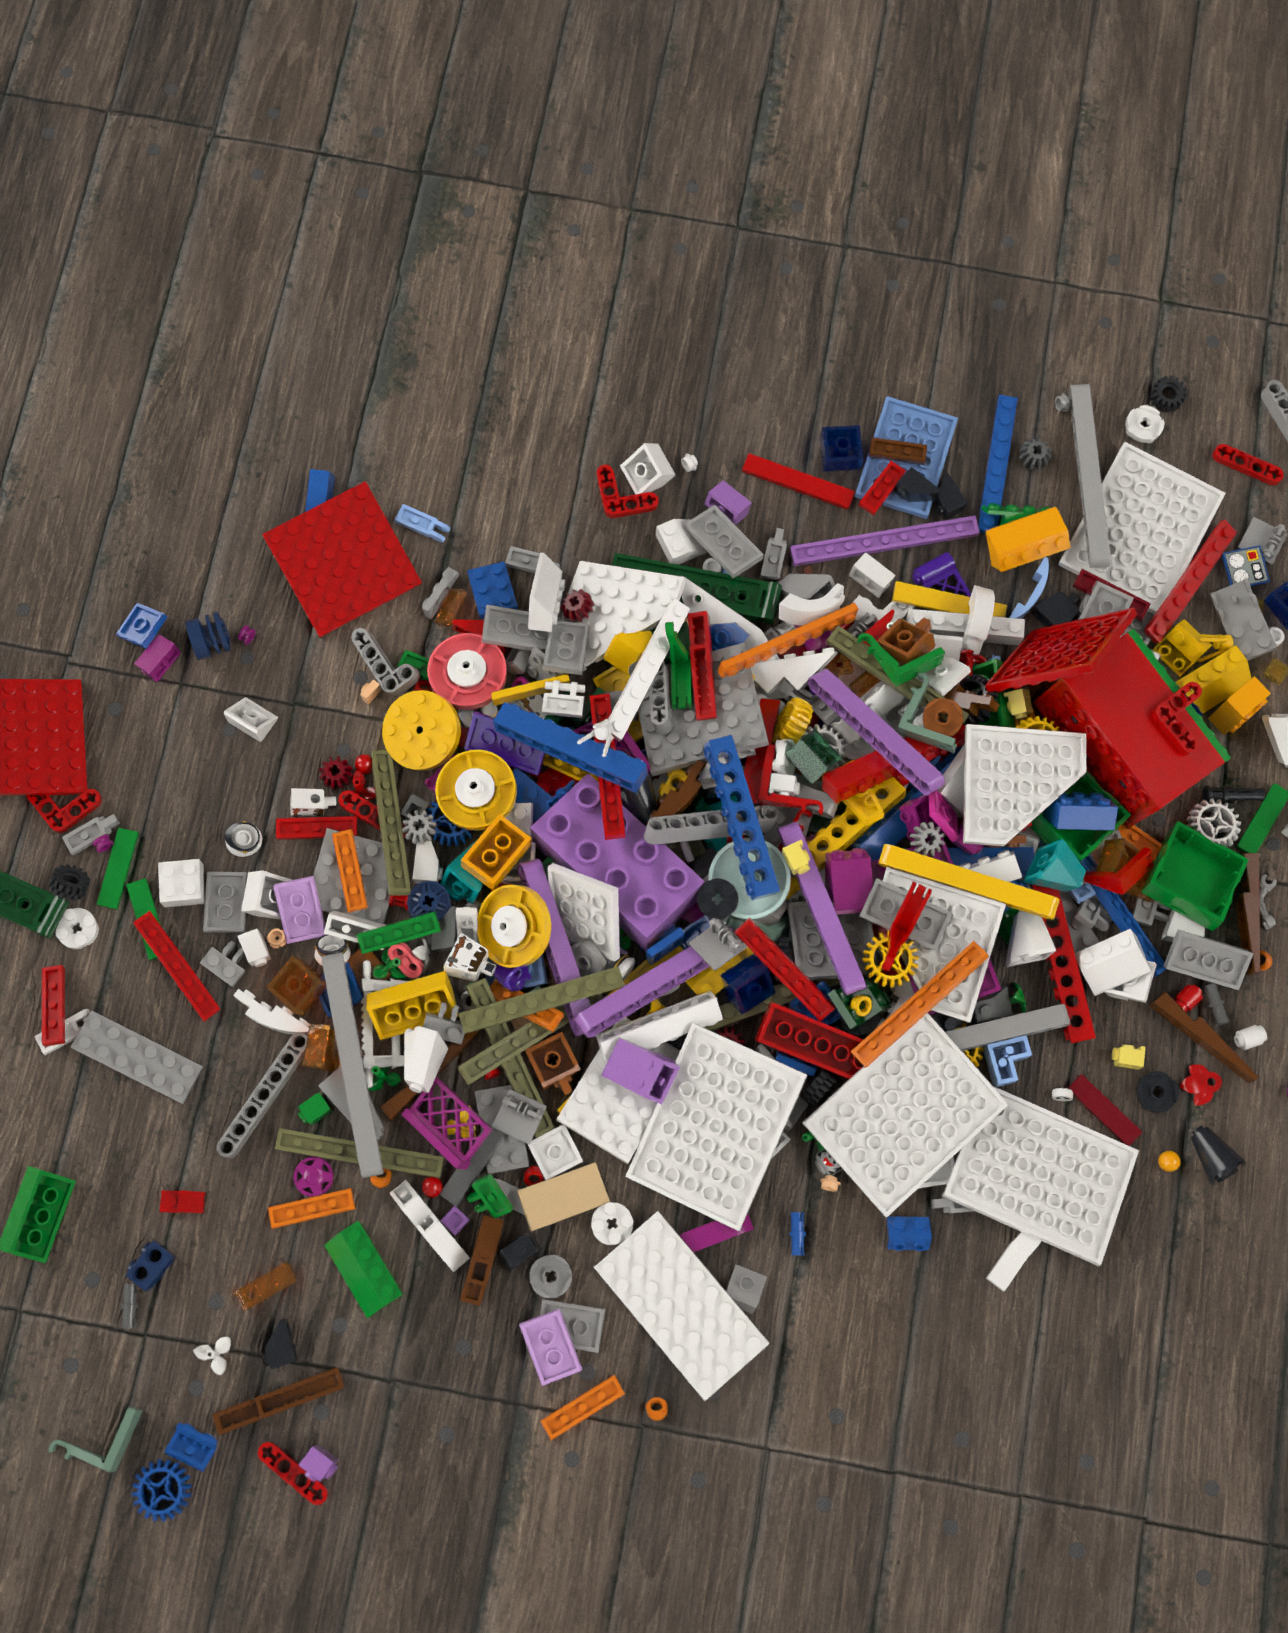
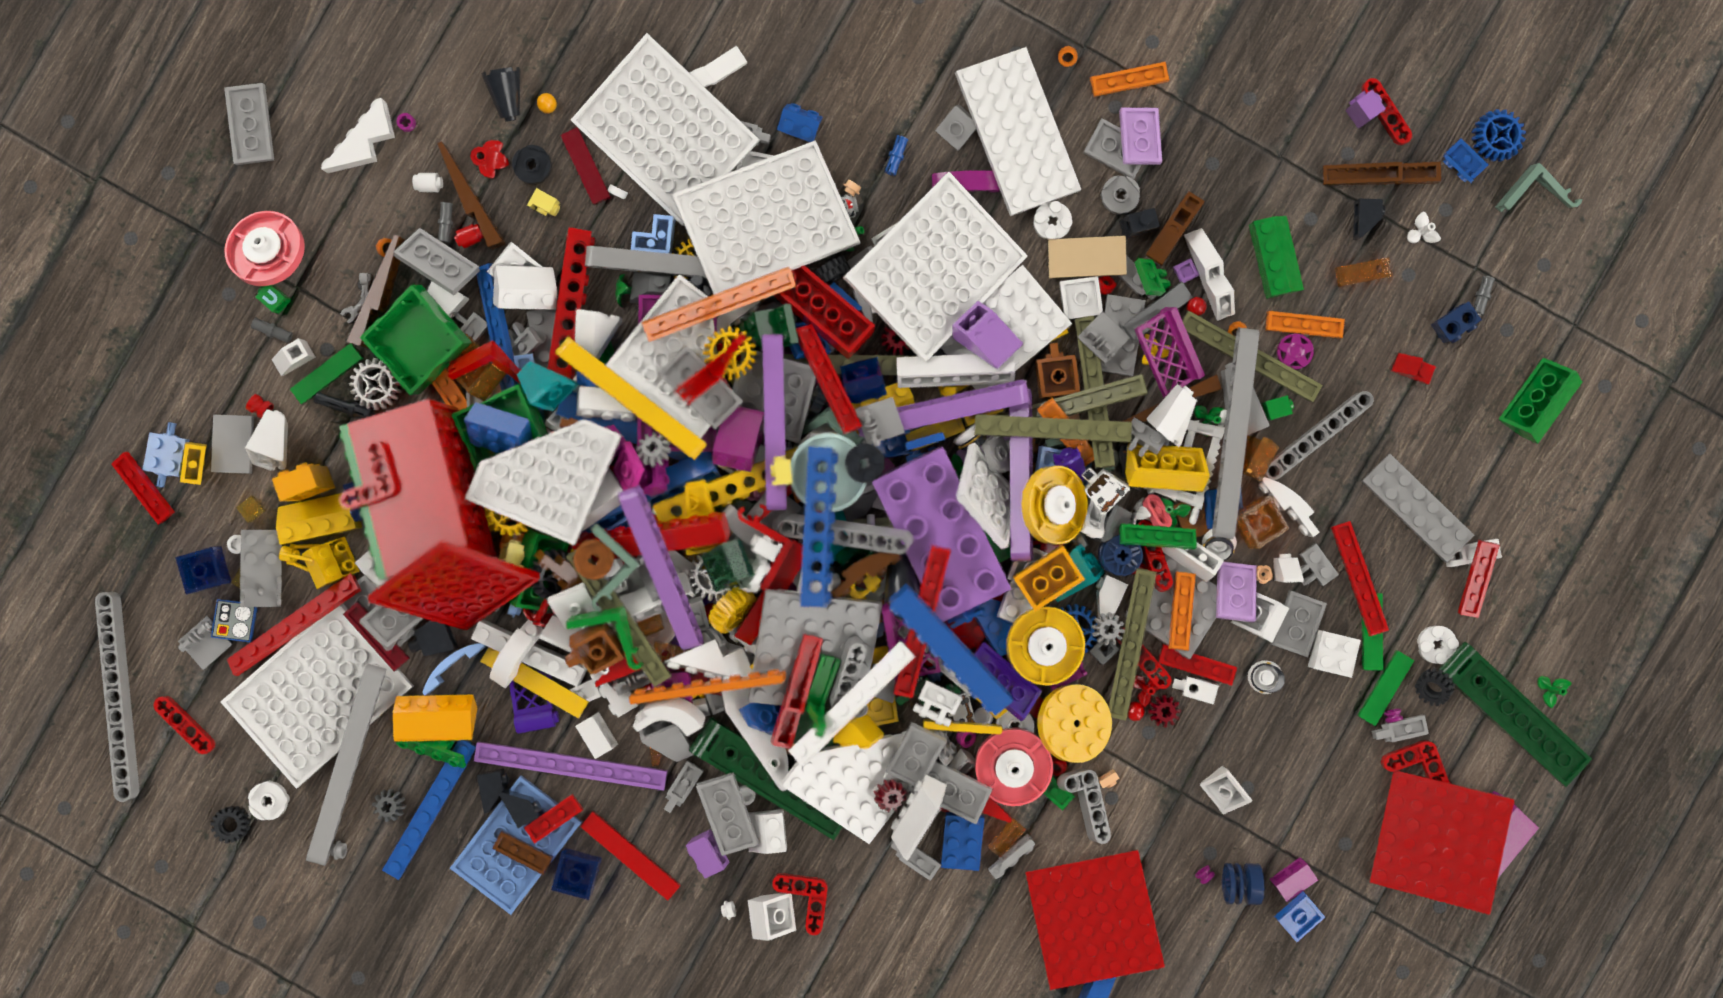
camera: 150 degrees left, 15 degrees up
(390, 918) = (1158, 555): none -> red beam
(421, 523) = (1007, 934): light blue hinge -> none
(602, 732) = (918, 651): white plant -> none
(855, 1002) = (773, 328): yellow piece -> none

